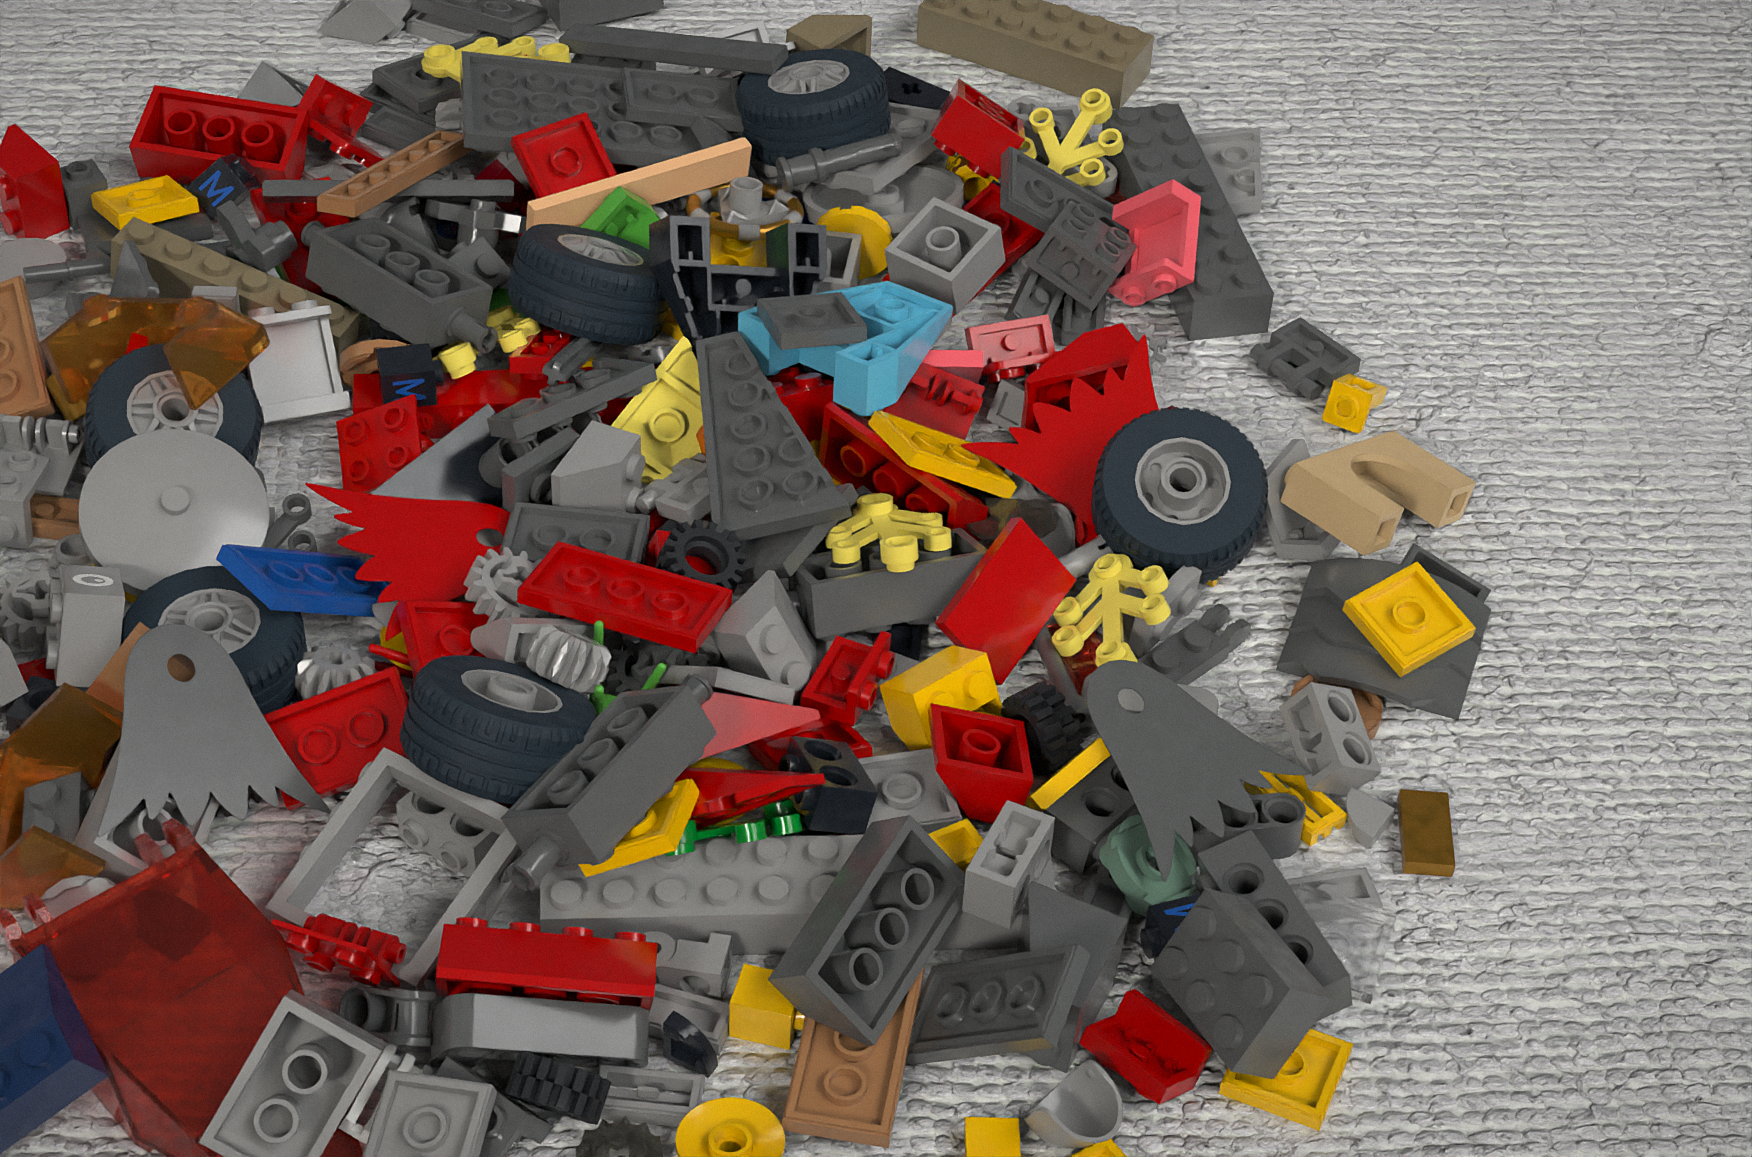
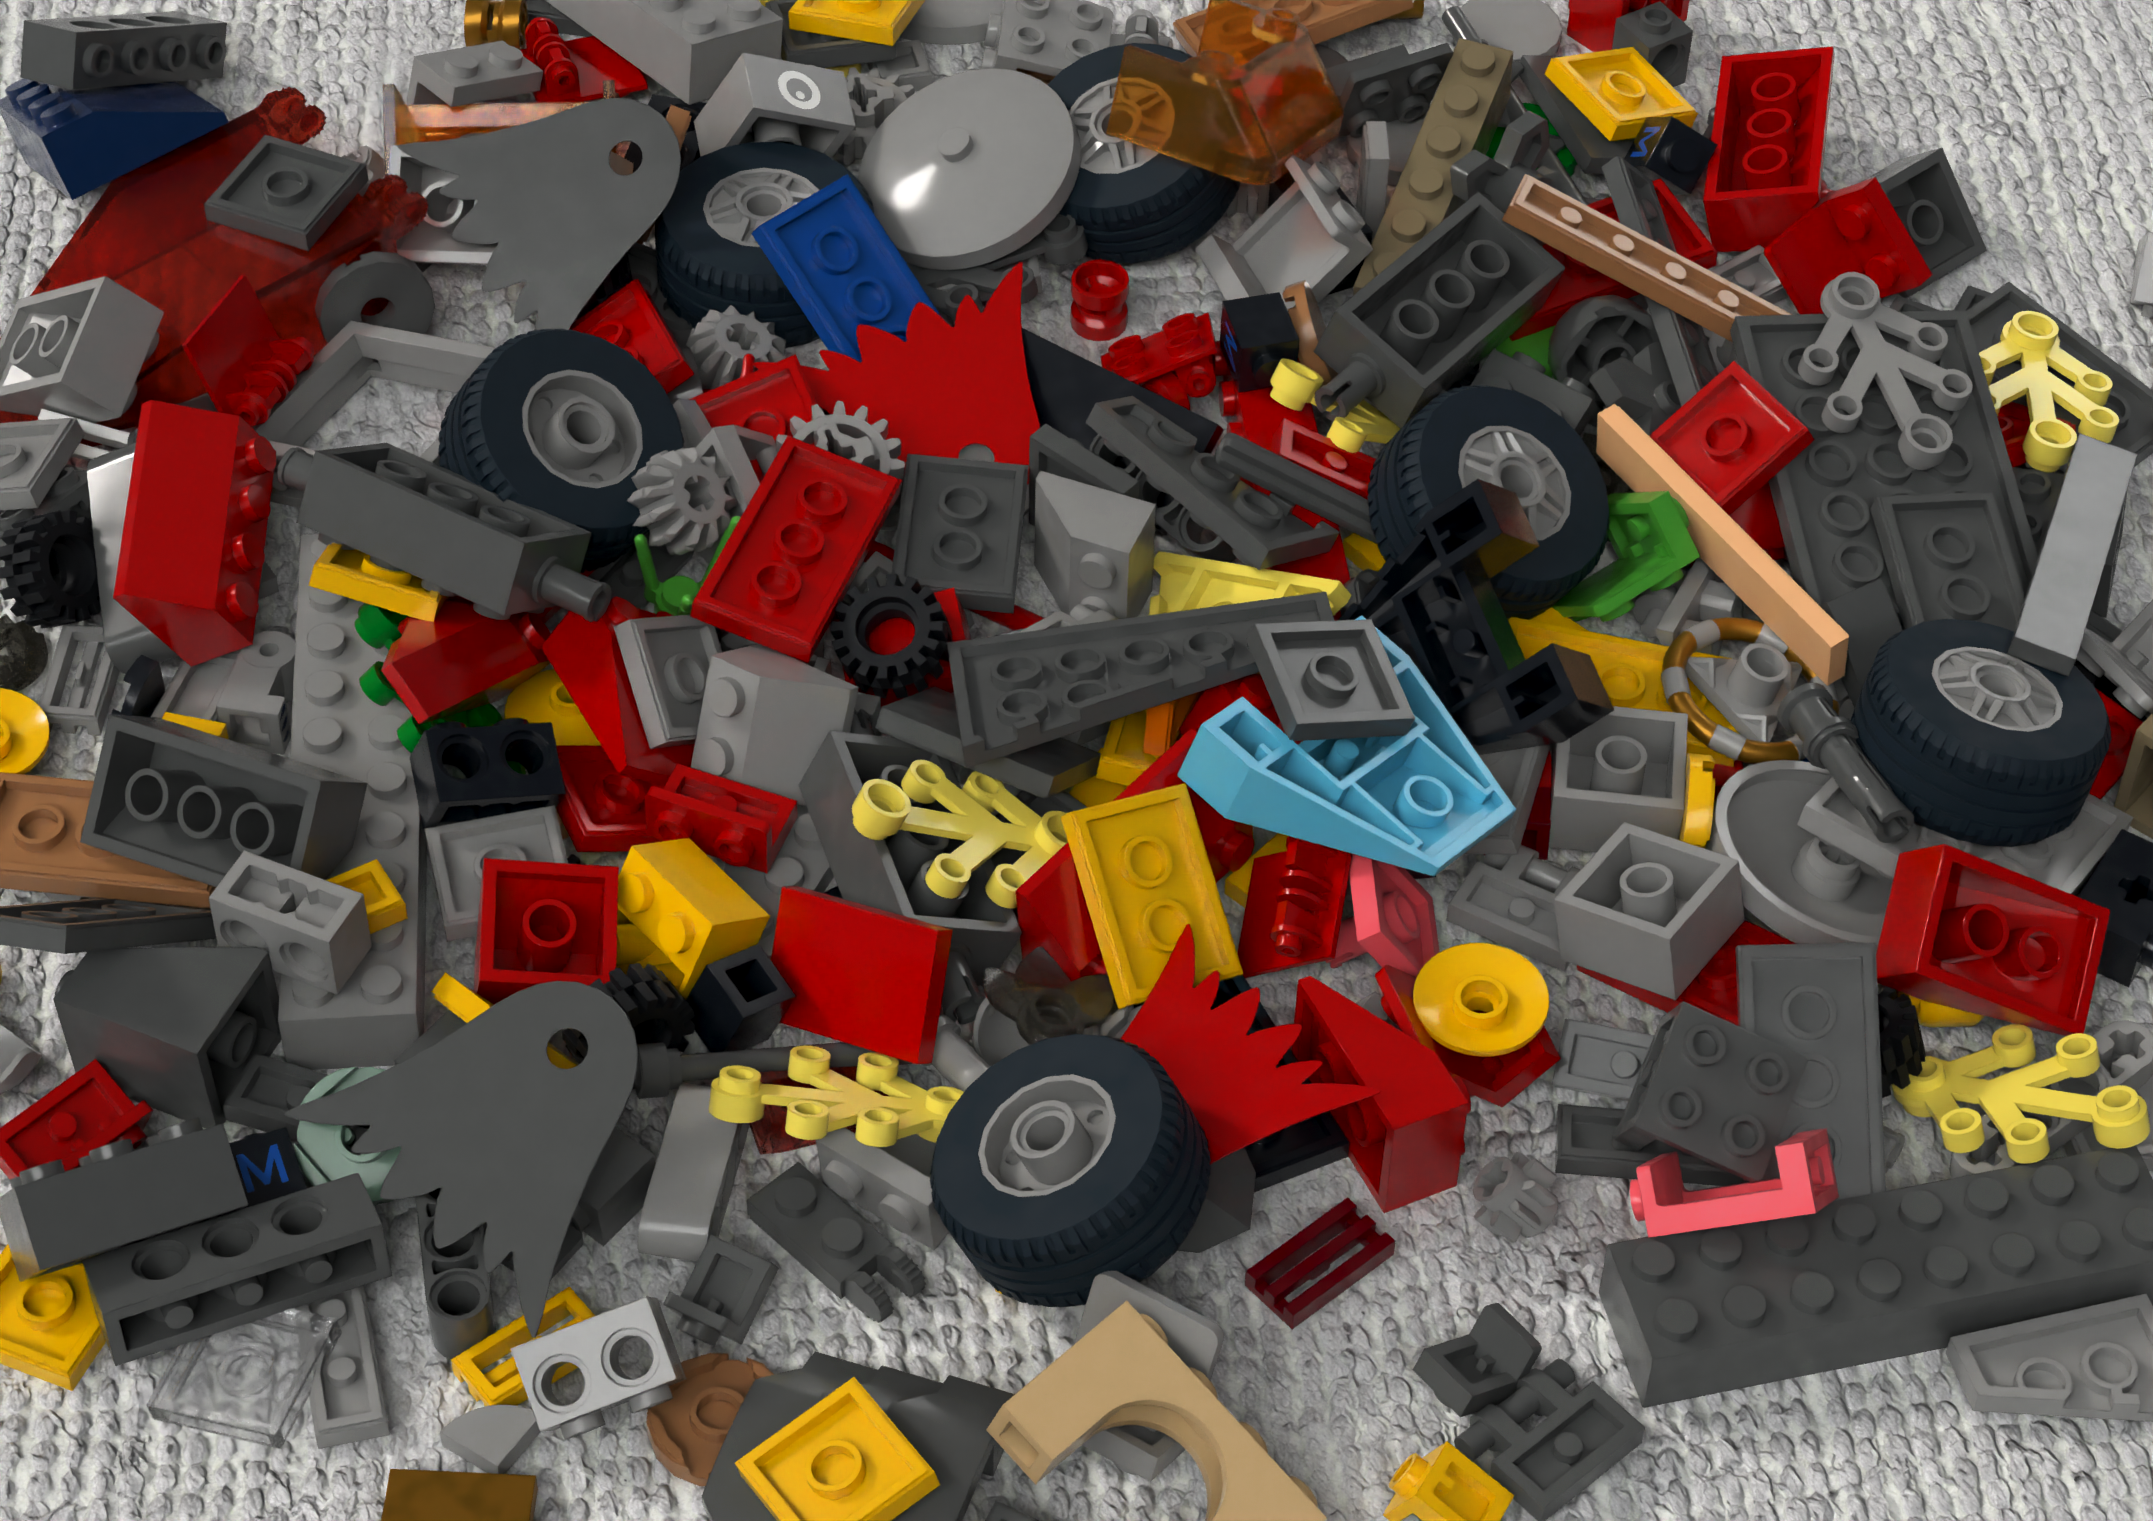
camera: 90 degrees right, 5 degrees up
(150, 907) = (286, 192): none -> dark grey tile
(244, 875) = (373, 277): none -> dark grey tile
(292, 474) = (1099, 309): none -> red wheel
(523, 82) = (1855, 306): none -> light grey plant
(1016, 329) = (1484, 980): none -> yellow dish
(1016, 665) = (739, 1000): none -> black brick
(1247, 698) = (722, 1293): none -> dark grey bracket
(1258, 379) = (1480, 1365): none -> dark grey bracket

